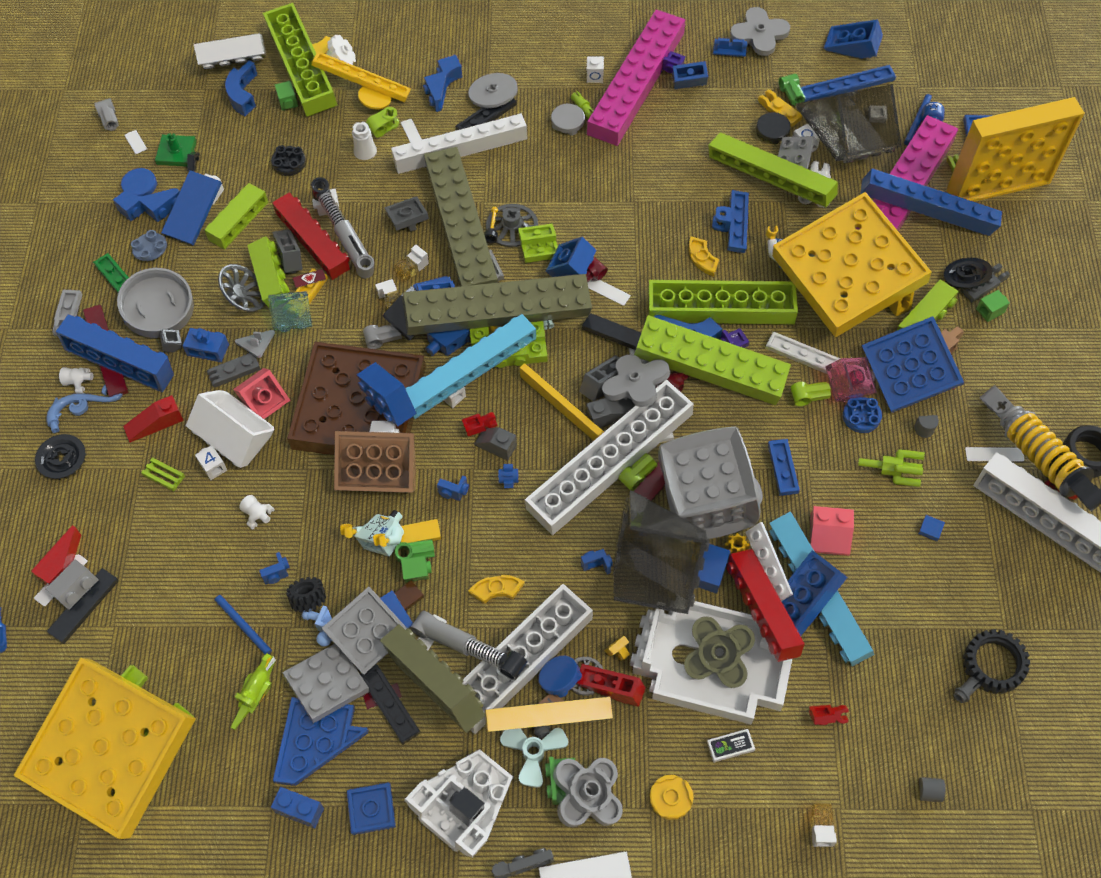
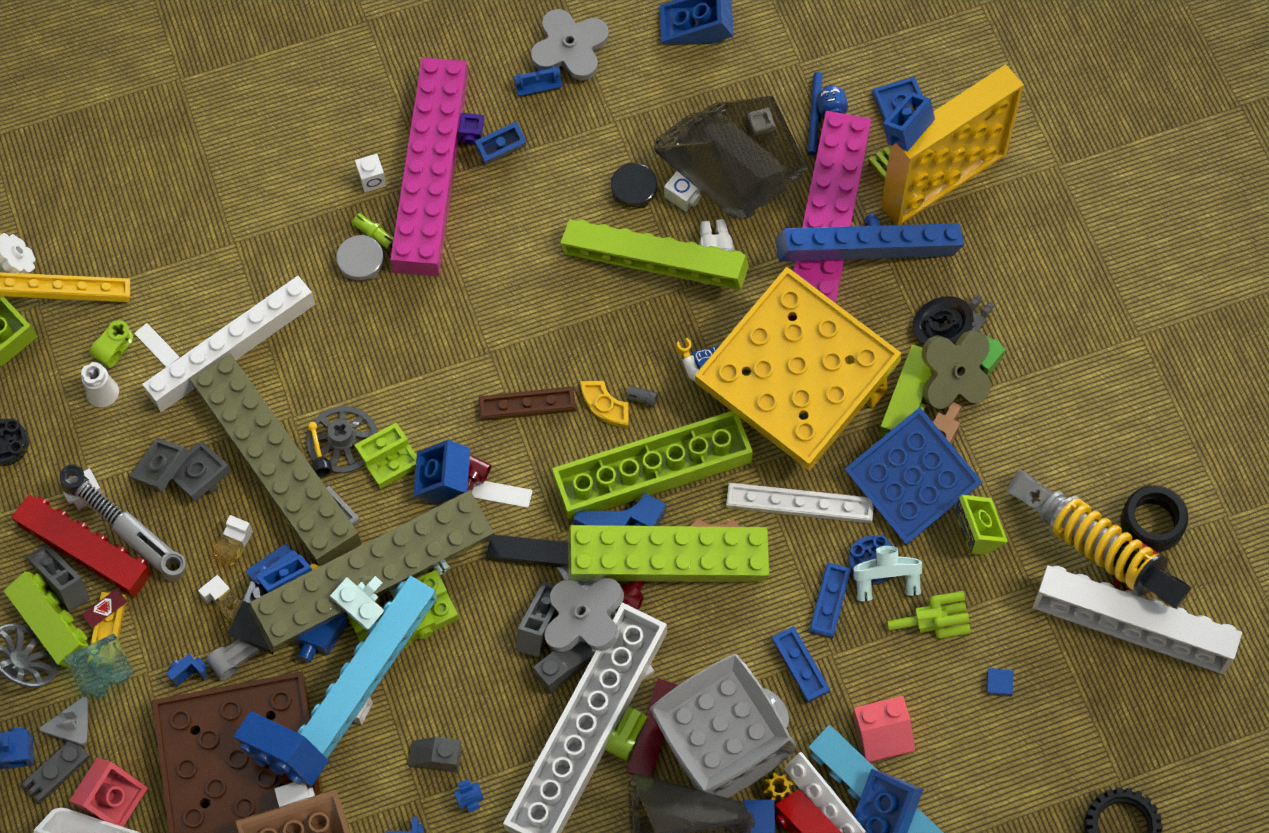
camera: 20 degrees left, 5 degrees up
(346, 332) = (182, 669): none -> blue bracket
(373, 99) = (85, 313): yellow piece -> none
(383, 201) = (159, 464): none -> dark grey hinge
(436, 85) = (163, 264): blue arch -> none
(476, 424) = (402, 739): red plate -> none
(479, 316) = (359, 601): none -> light aqua hinge
(486, 115) = (248, 284): black tile -> none
(493, 90) = (246, 231): light grey piece -> none
(560, 402) = (499, 674): yellow tile -> none
(648, 240) = (527, 403): none -> reddish brown tile
(734, 260) = (642, 396): none -> dark grey pin
(735, 220) = (629, 340): blue plate -> none
(735, 337) = (684, 512): dark purple bracket -> none
(779, 106) = (632, 152): yellow hinge -> none
(791, 86) = (636, 115): bright green piece -> none
(798, 149) = (676, 216): light grey piece -> none
(805, 393) = (795, 556): lime piece -> none
(820, 432) = (830, 600): none -> blue tile
(849, 83) = (707, 88): blue tile -> none
(850, 378) = (845, 519): clear pink slope -> none
(872, 417) = (887, 565): none -> light aqua connector
(926, 425) = (954, 550): dark grey brick -> none
(951, 412) = (980, 524): none -> lime slope
(968, 303) = (956, 369): none -> olive plant
(987, 453) = (1042, 558): white sticker -> none
(990, 108) = (909, 121): none -> blue brick

